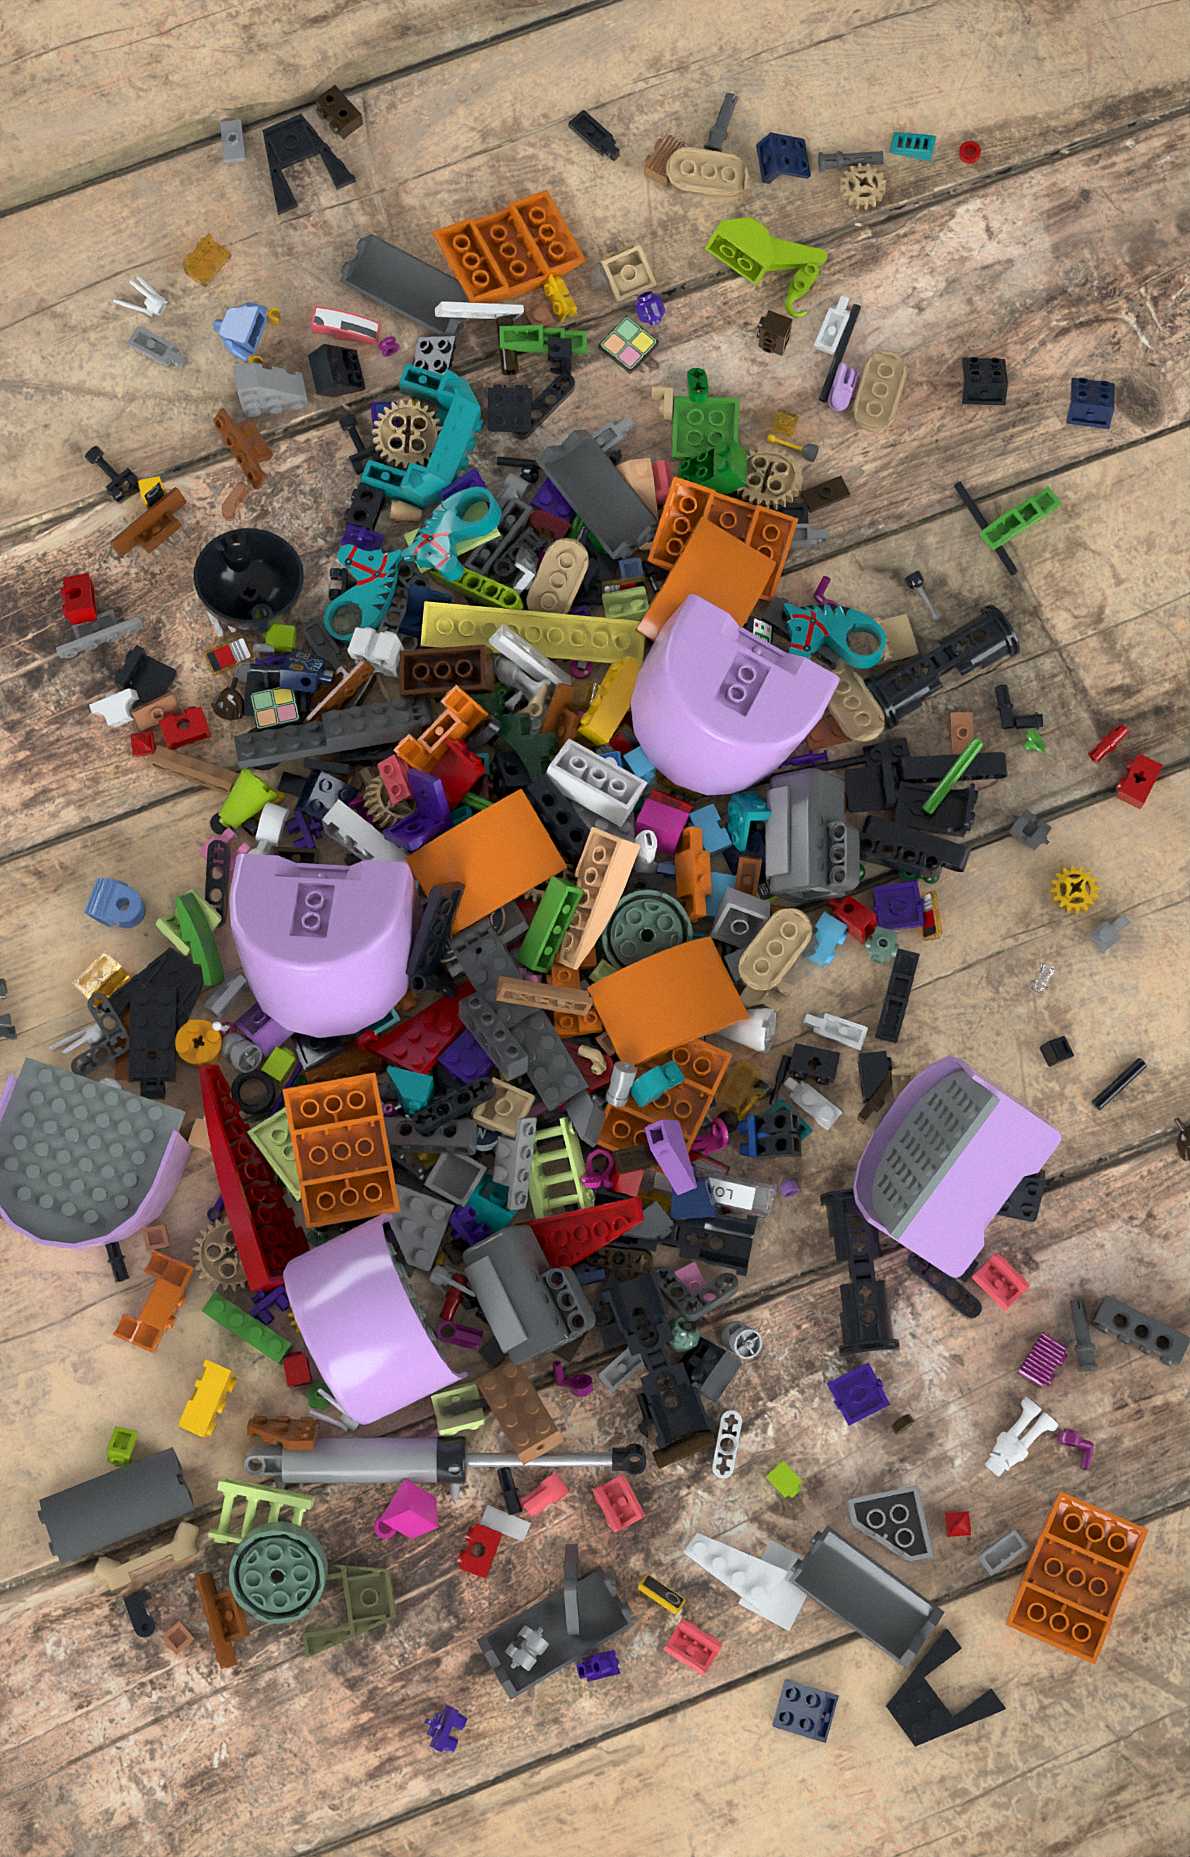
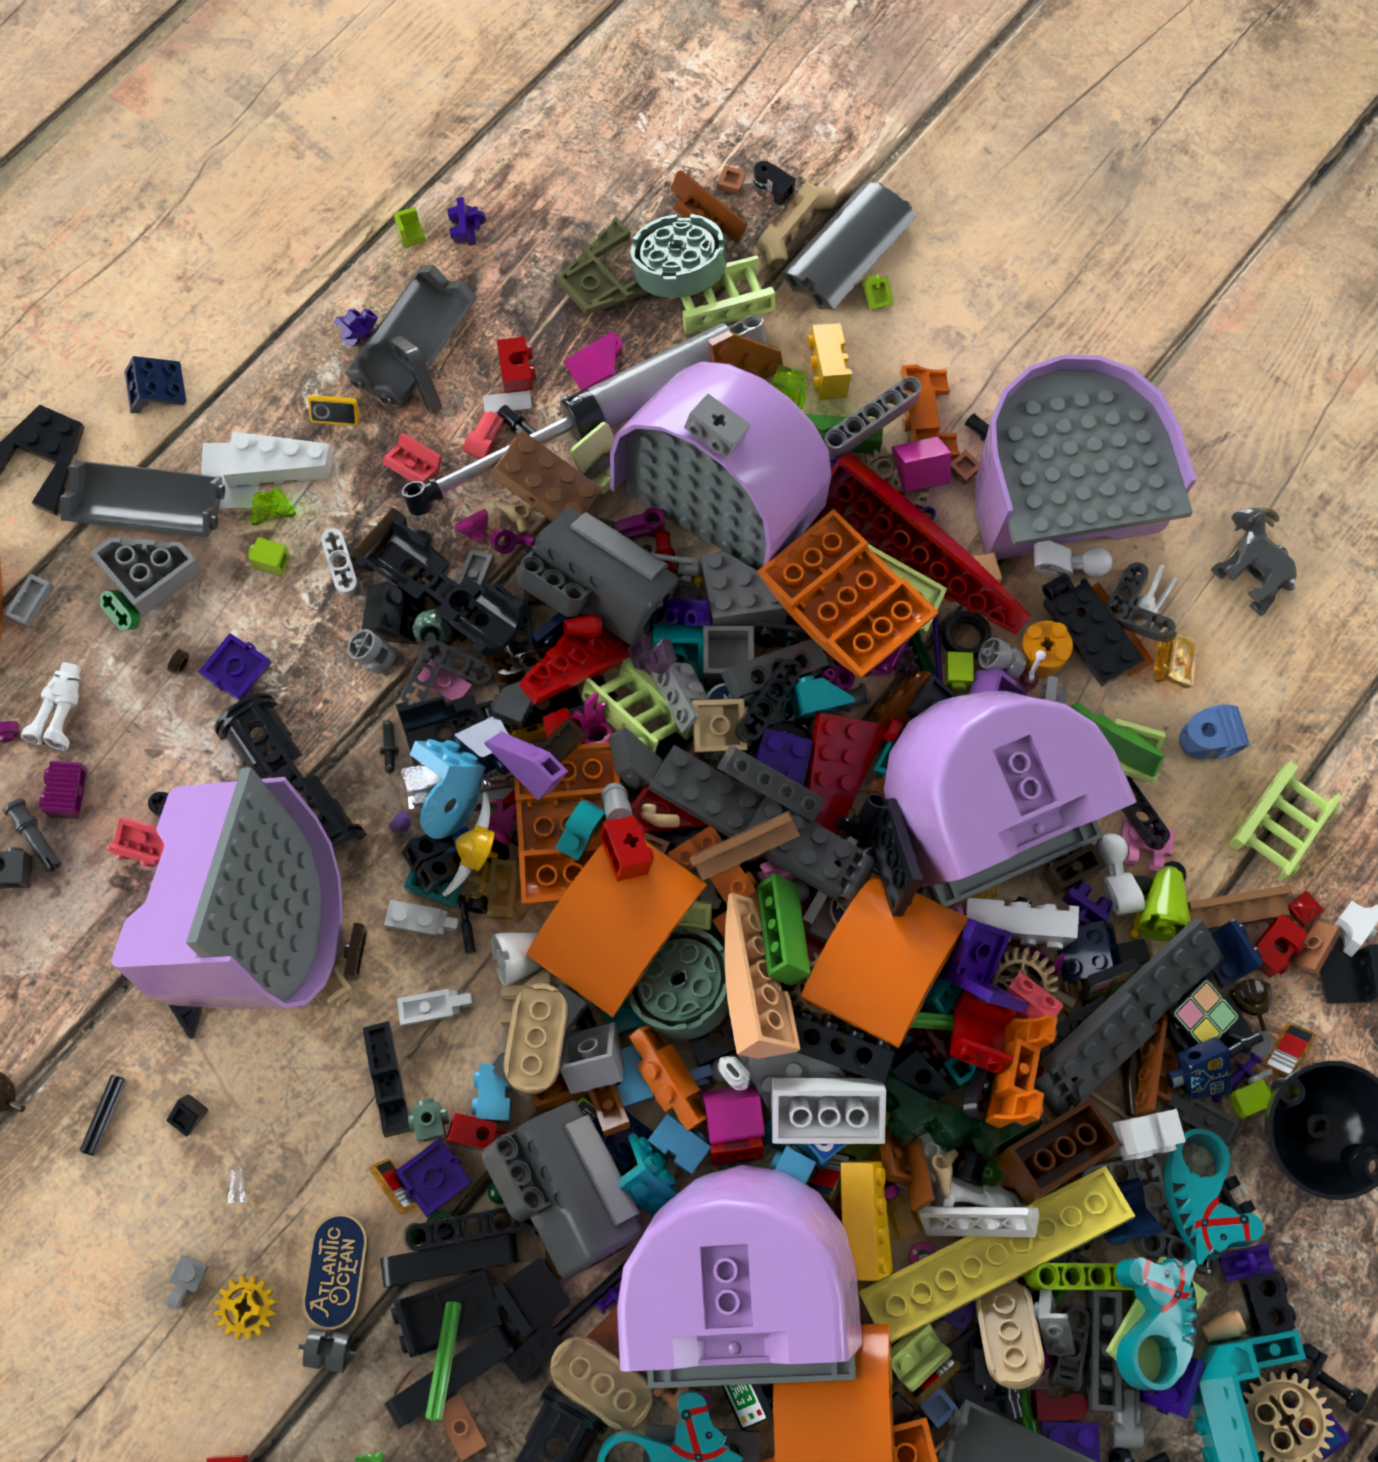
camera: 145 degrees right, 5 degrees down
(107, 833) = (1274, 799): none -> yellowish green fence
(166, 970) = (1121, 696): black wing -> none
(196, 1250) = (922, 464): none -> dark pink slope
(202, 1307) = (876, 408): none -> light grey beam
(222, 742) = (1238, 953): none -> dark blue bracket
(263, 1385) = (791, 384): none -> clear neon green brick
(372, 1288) = (717, 425): none -> light grey brick
(499, 1749) = (409, 227): none -> lime panel
(519, 1190) = (649, 658): none -> clear purple tile
(526, 1648) = (428, 307): light grey wheel -> none
(556, 1407) = (516, 513): none -> tan animal
(560, 1255) = (584, 626): none -> red cone
(598, 1414) = (474, 525): none -> dark pink piece
(637, 1051) = (626, 847): none -> red brick
(693, 1646) = (282, 381): coral bracket -> none
(730, 1183) = (459, 780): none -> medium azure piece
(744, 1122) = (474, 847): none -> yellow helmet
(766, 1258) = (389, 749): none -> pearl dark grey piece
(769, 1532) = (270, 504): none -> clear neon green animal
(804, 1055) = (451, 960): black brick -> none
(873, 1070) = (371, 981): black slope -> none
(931, 1499) = (122, 610): none -> green beam
(957, 1524) = (84, 604): red tile -> none
(999, 882) = (335, 1272): none -> tile

